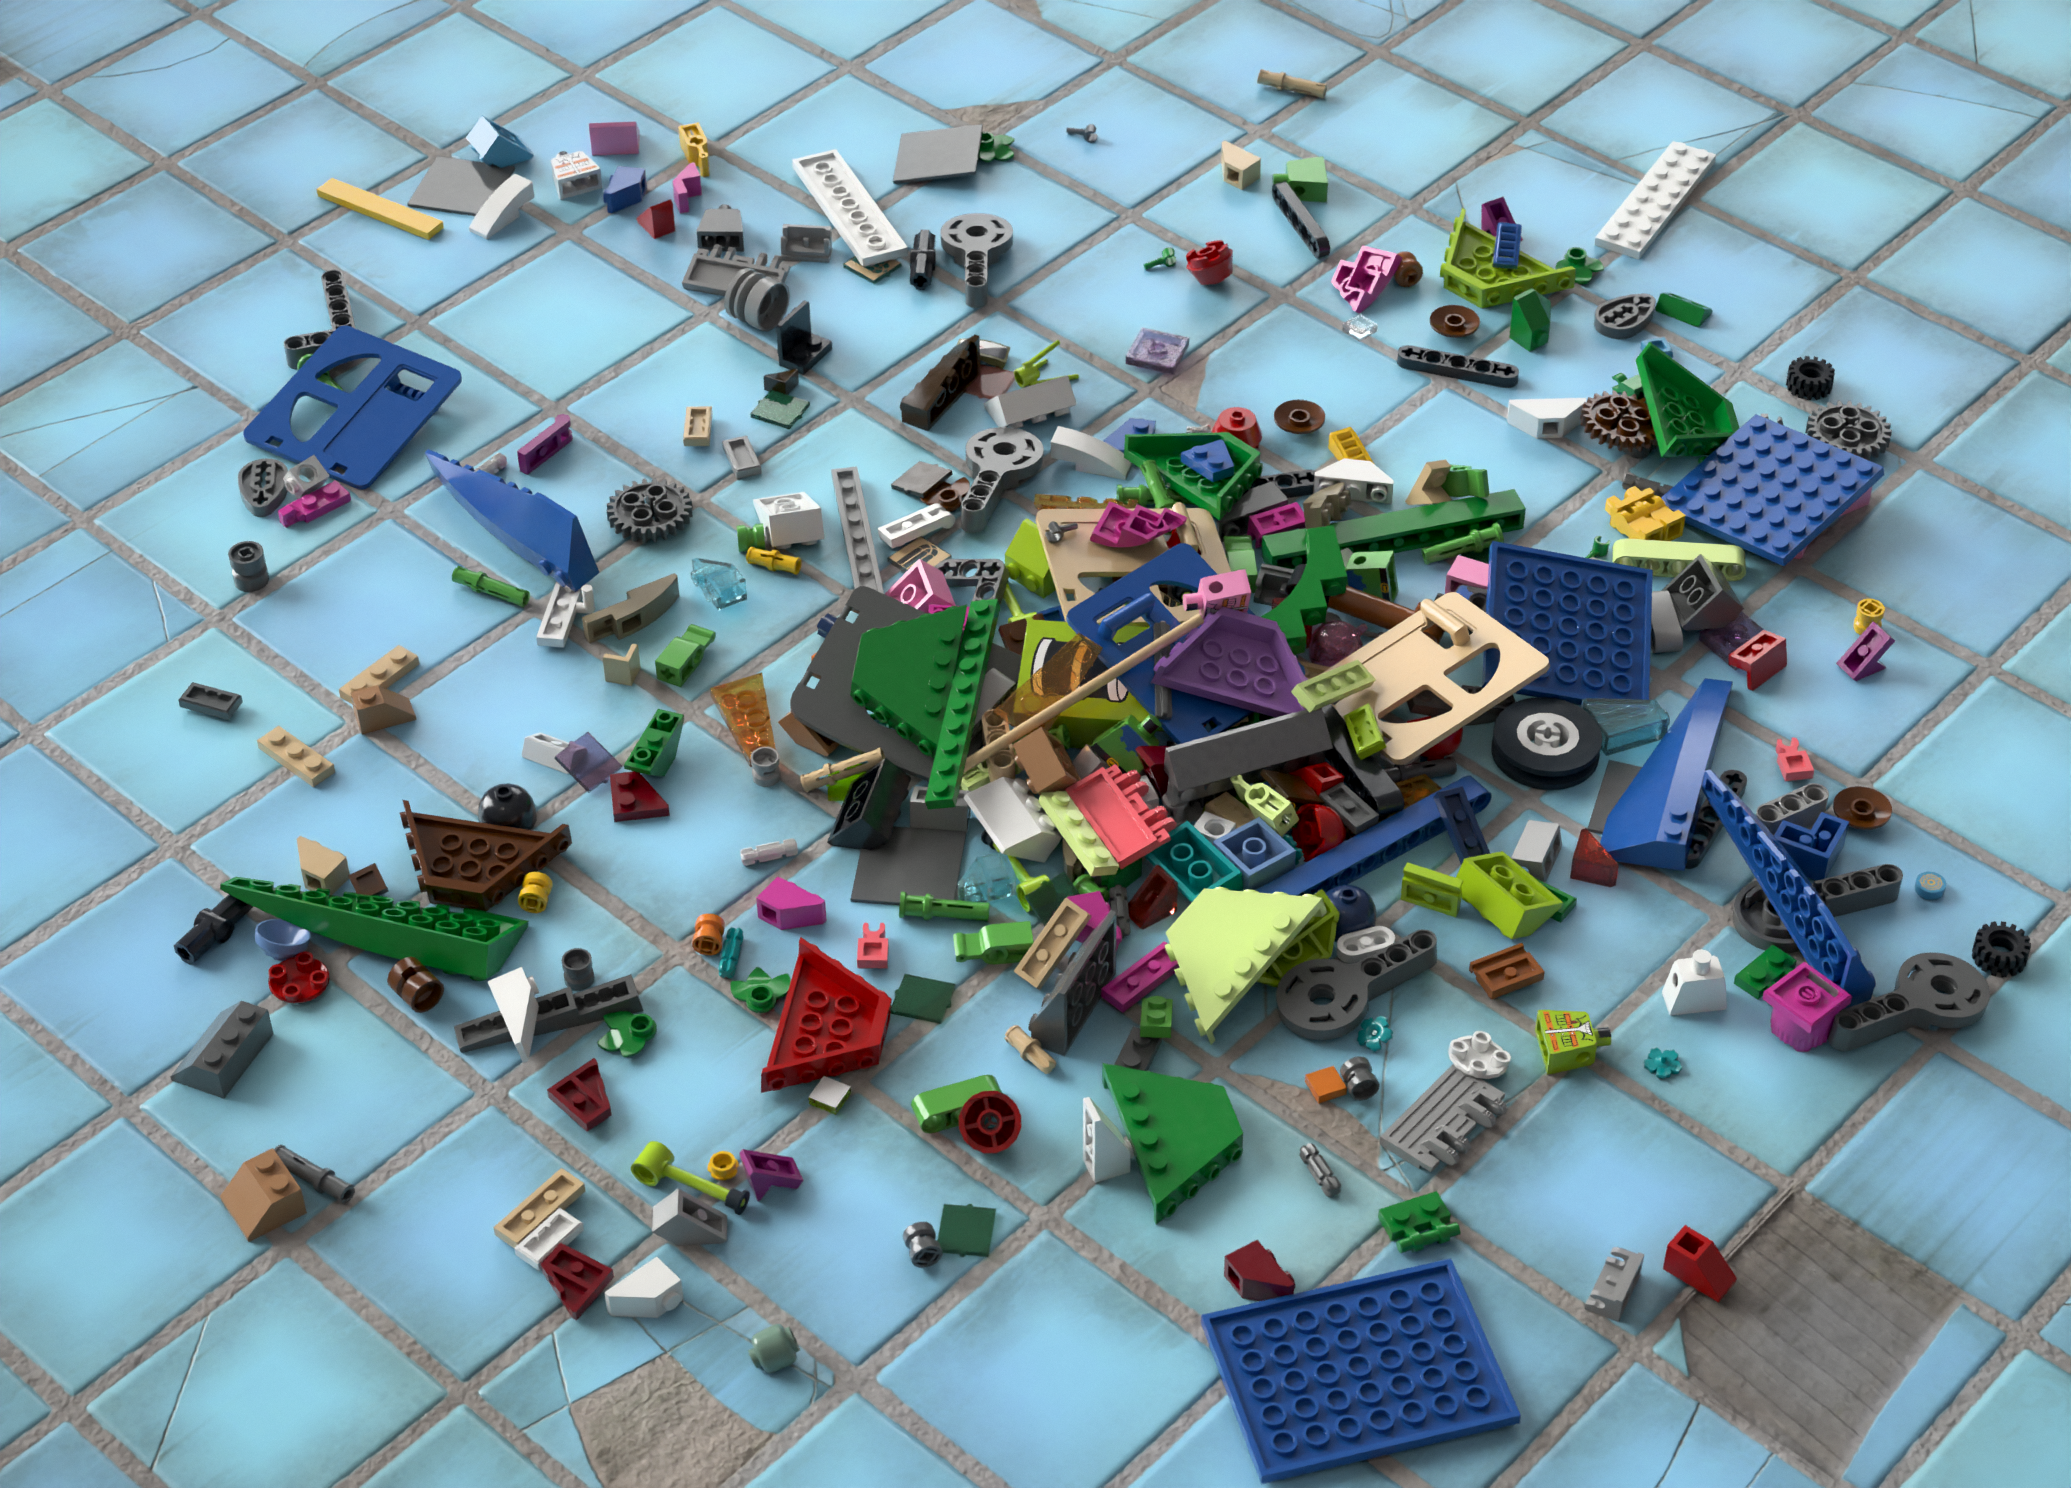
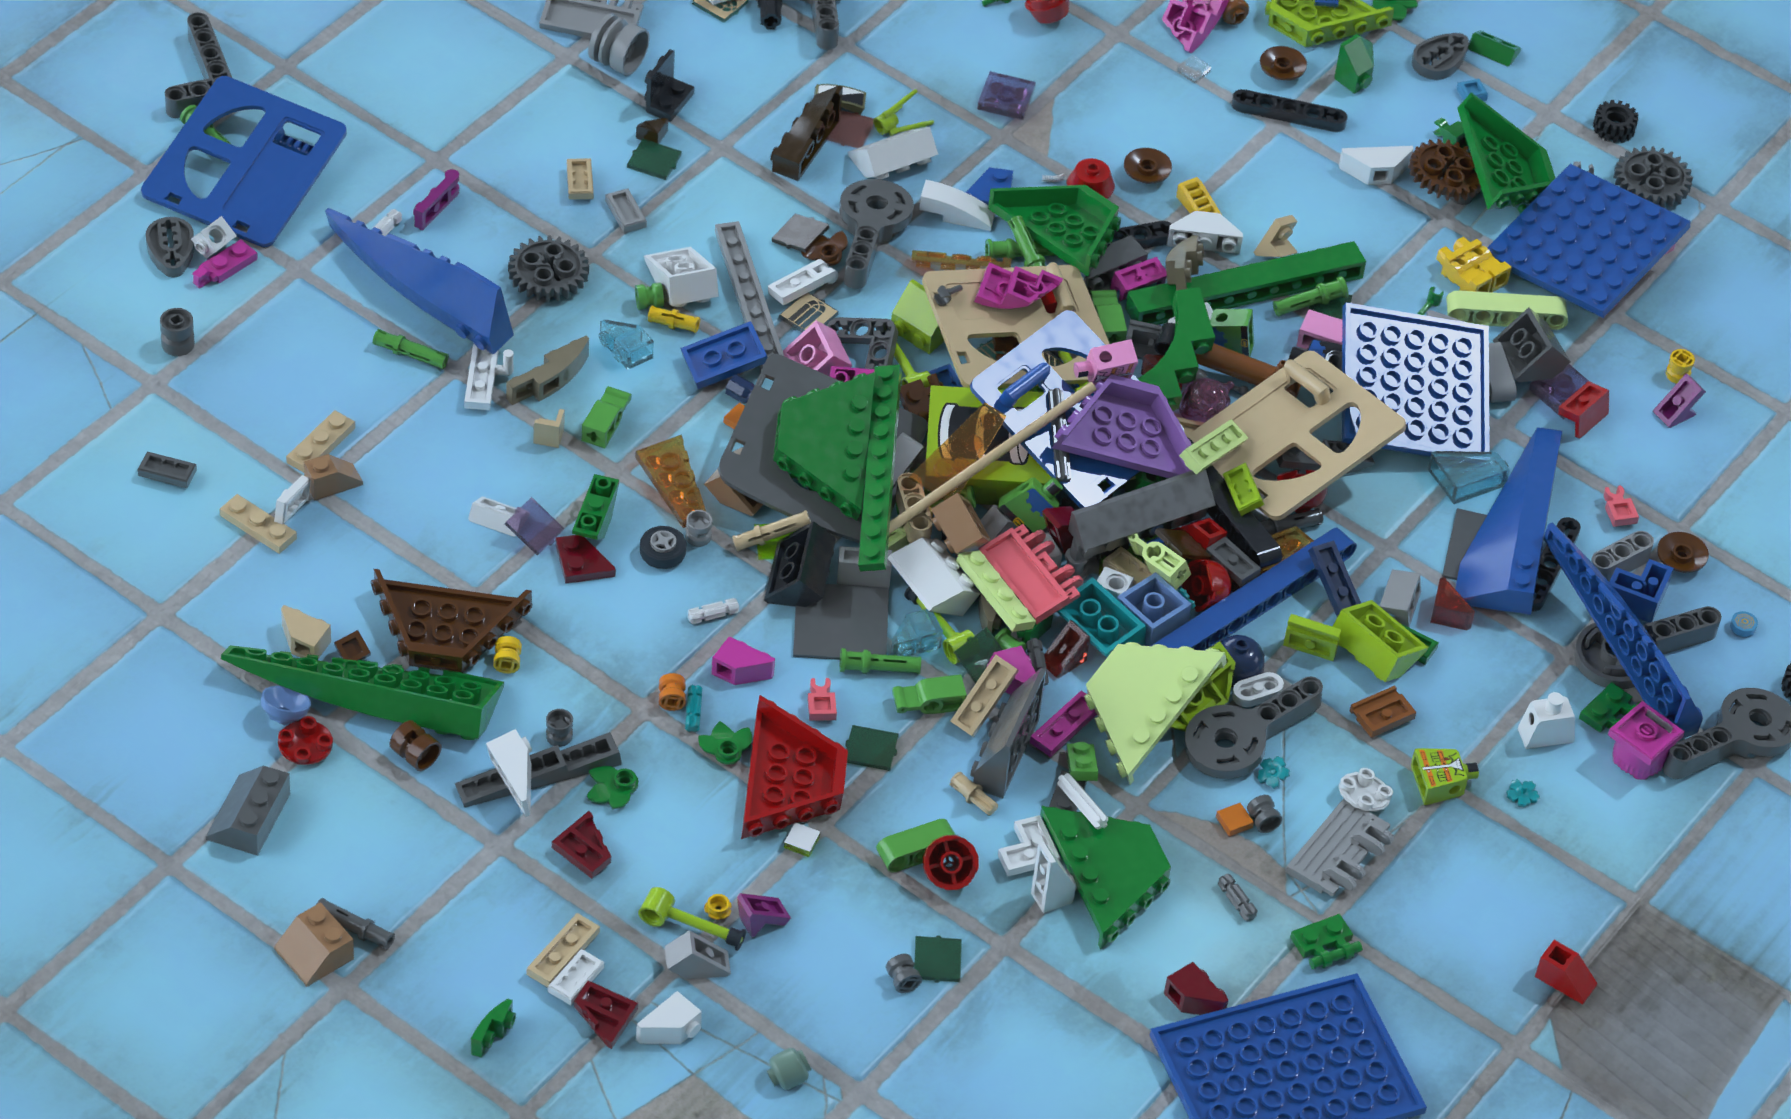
camera: 10 degrees left, 5 degrees up
(211, 927) = (215, 694): black piece -> none
(333, 731) = (292, 499): none -> white plate
(445, 1287) = (492, 1026): none -> green slope
(507, 806) = (467, 572): black cylinder -> none
(724, 785) = (663, 547): none -> black wheel
(817, 594) = (724, 355): none -> blue plate
(1068, 1120) = (1022, 856): none -> white plate
(1149, 1058) = (1082, 801): none -> white axle
(1209, 460) = (1072, 215): blue wing -> none
(1466, 481) = (1309, 235): bright green piece -> none
(1544, 762) = (1396, 512): black wheel -> none
(1615, 1284) = (1496, 991): light grey hinge -> none
(1642, 484) = (1471, 234): dark grey axle -> none

